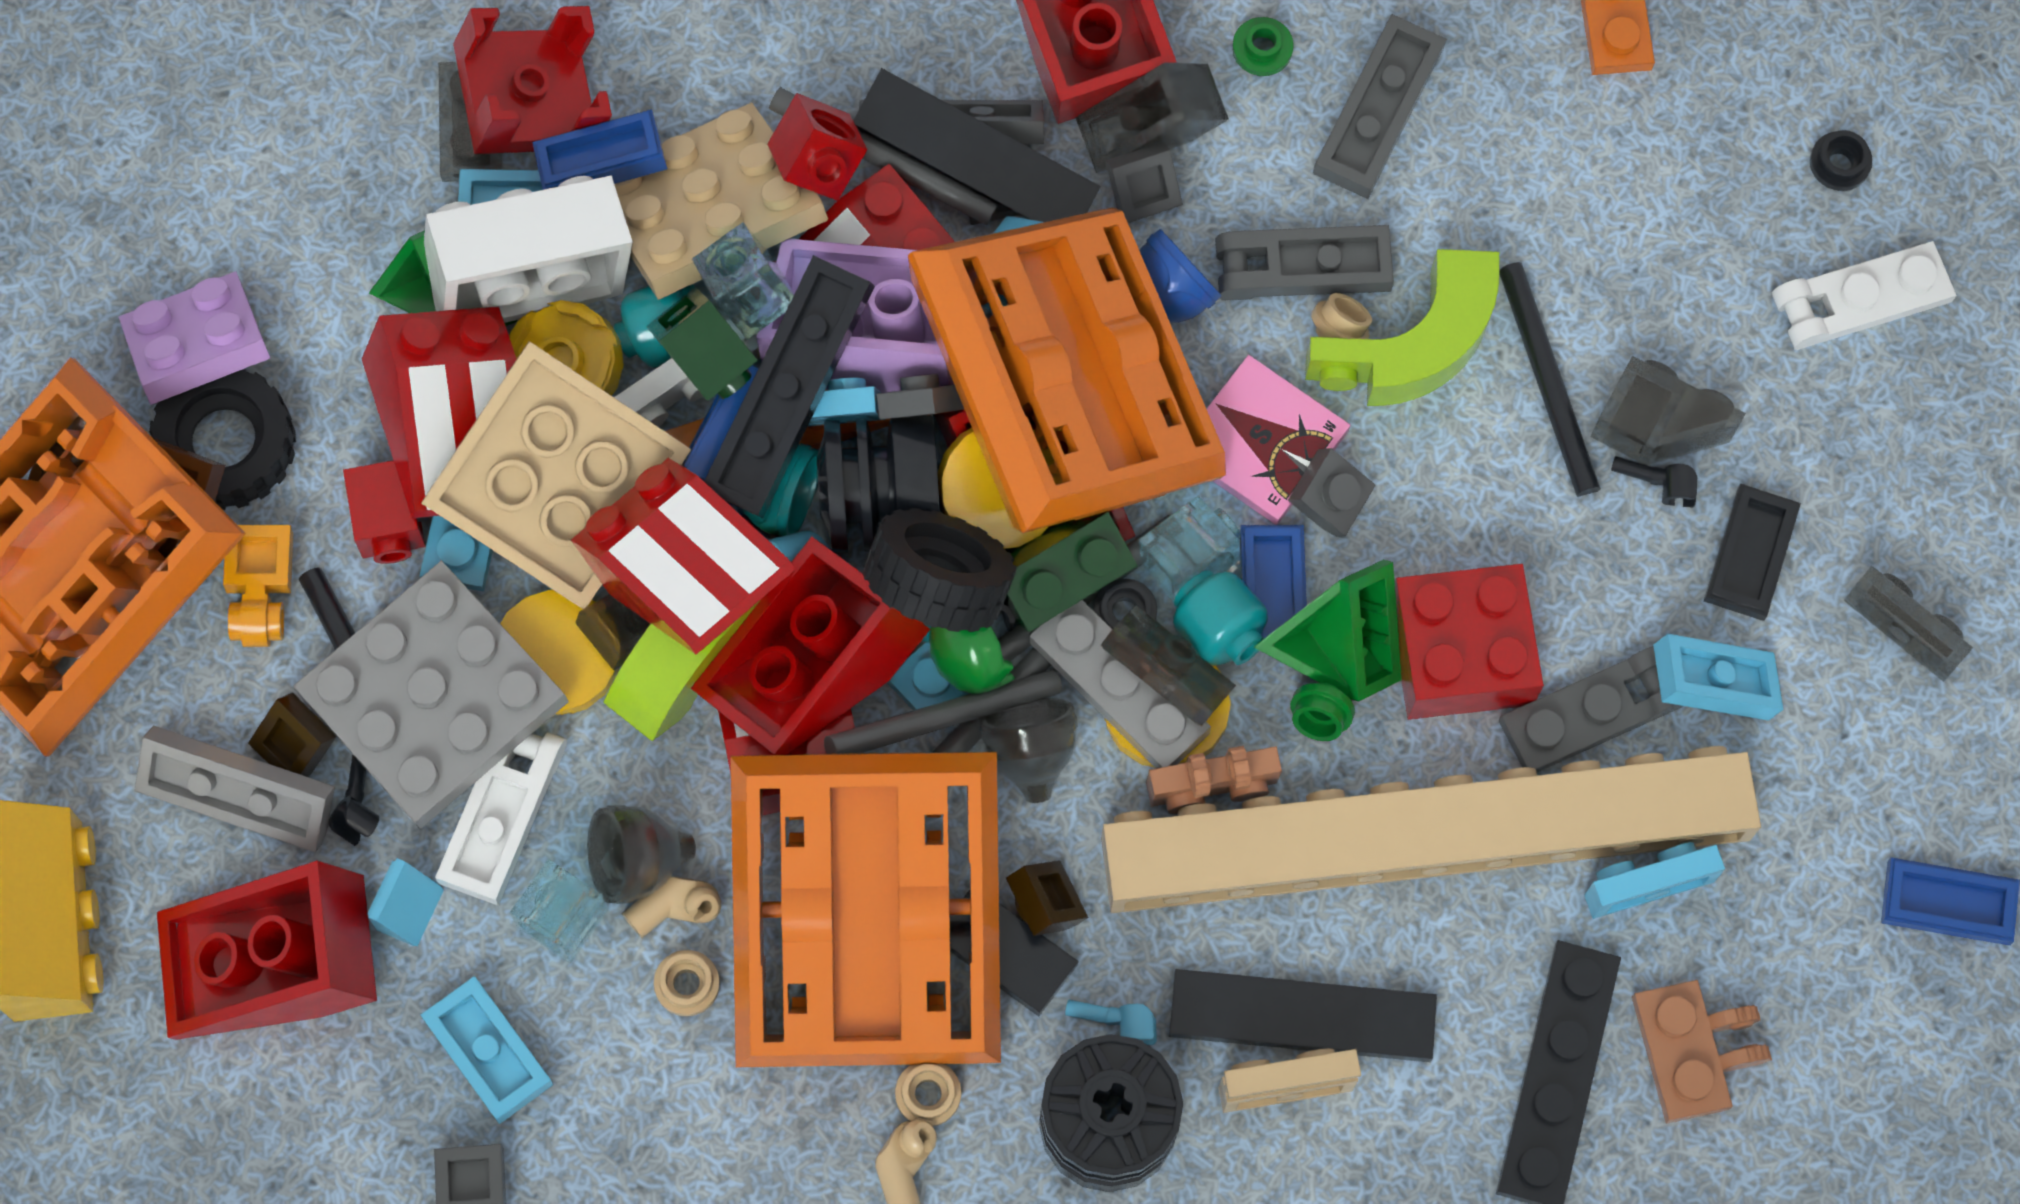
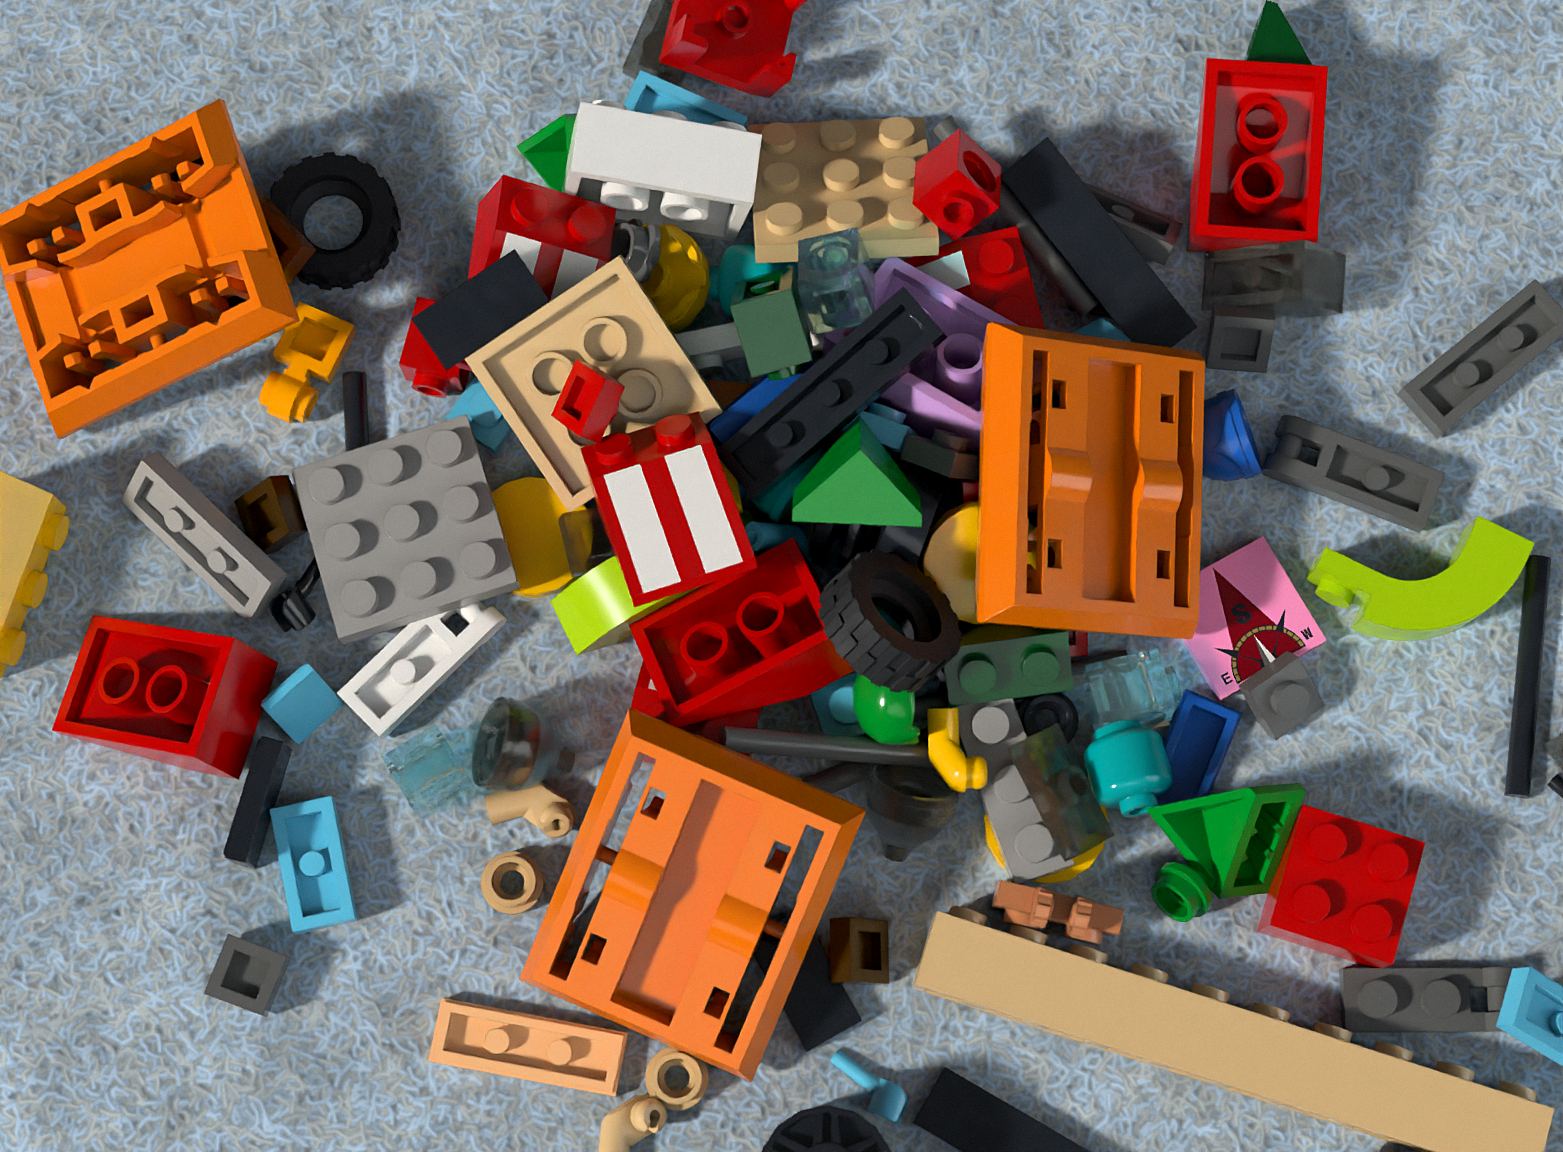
camera: 25 degrees right, 5 degrees up
(193, 337) = (345, 123): lavender plate -> none
(405, 1014) = (257, 797): none -> black tile
(415, 450) = (480, 309): none -> black tile
(538, 328) = (638, 247): none -> dark grey plate
(560, 490) = (588, 401): none -> red plate
(618, 148) = (769, 107): blue tile -> none
(773, 1129) = (528, 1047): none -> light nougat tile
(851, 457) = (857, 485): none -> green slope
(1048, 679) = (946, 755): none -> yellow arm
(1262, 61) = (1396, 272): green plate -> none
(1341, 318) = (1362, 540): tan plate -> none

